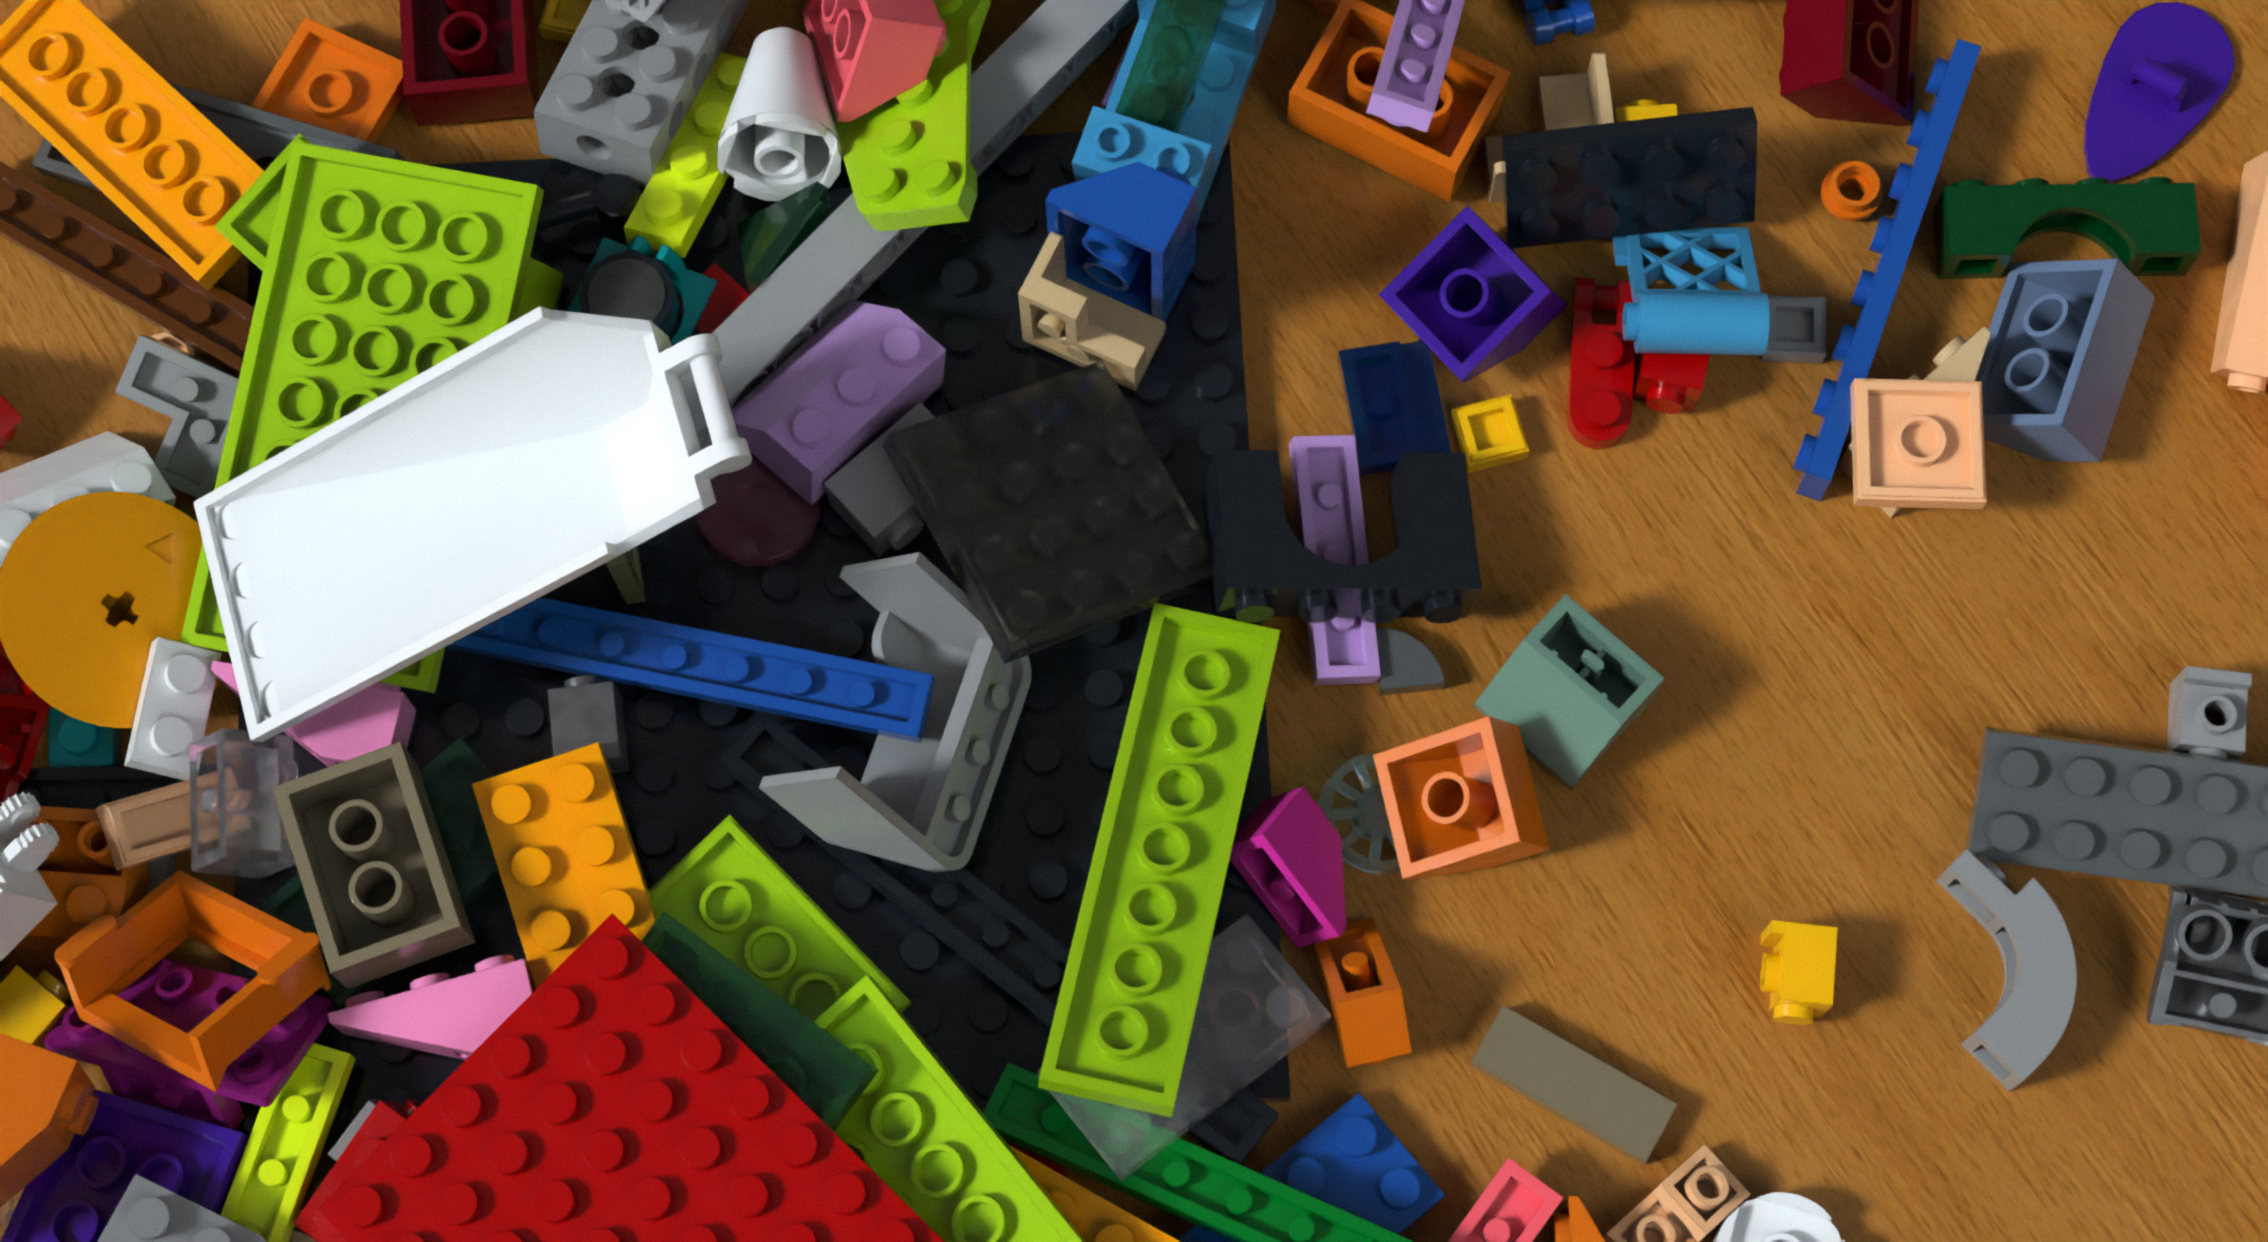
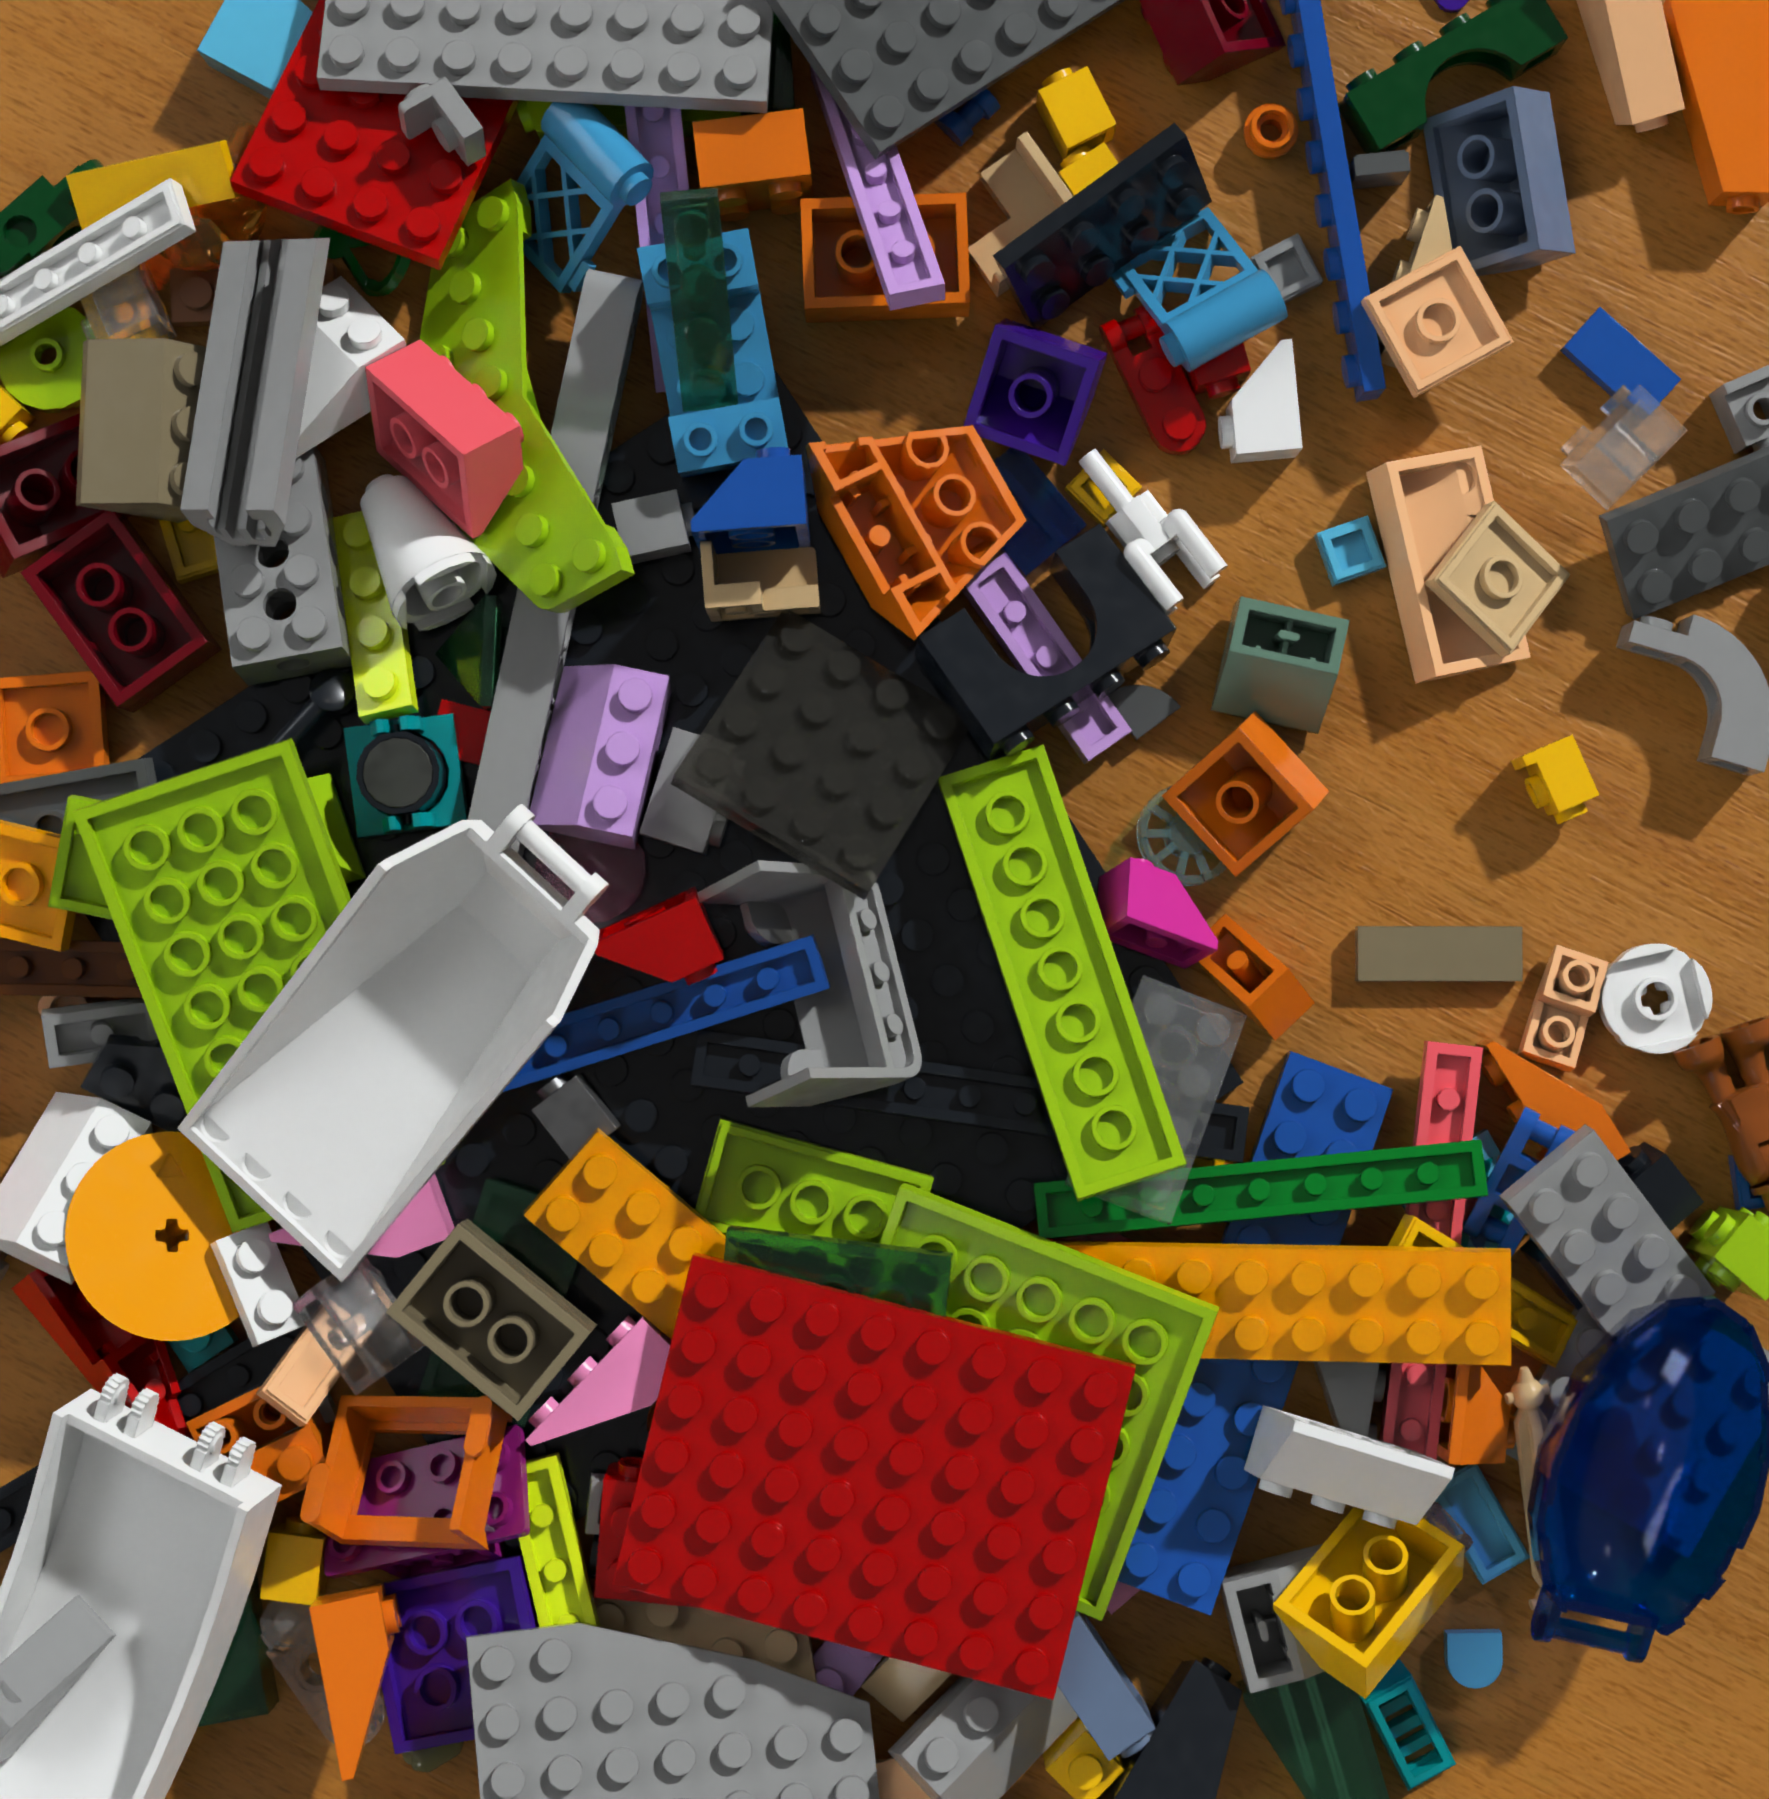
camera: 30 degrees left, 15 degrees up
(185, 445) = (136, 1079): none -> black wing
(785, 595) = (665, 940): none -> red slope
(1012, 213) = (654, 525): none -> light grey brick
(1281, 341) = (913, 516): none -> orange wedge
(1513, 501) = (1153, 536): none -> white plant
(1666, 64) = (1074, 111): none -> yellow brick
(1693, 443) = (1264, 413): none -> white slope
(1707, 630) = (1349, 551): none -> medium azure tile
(1802, 697) = (1420, 515): none -> light nougat slope
(1845, 734) = (1497, 579): none -> tan tile
(1939, 280) = (1379, 169): none -> dark grey tile
(2049, 672) = (1621, 445): none -> clear brick
(2090, 601) = (1617, 358): none -> blue tile

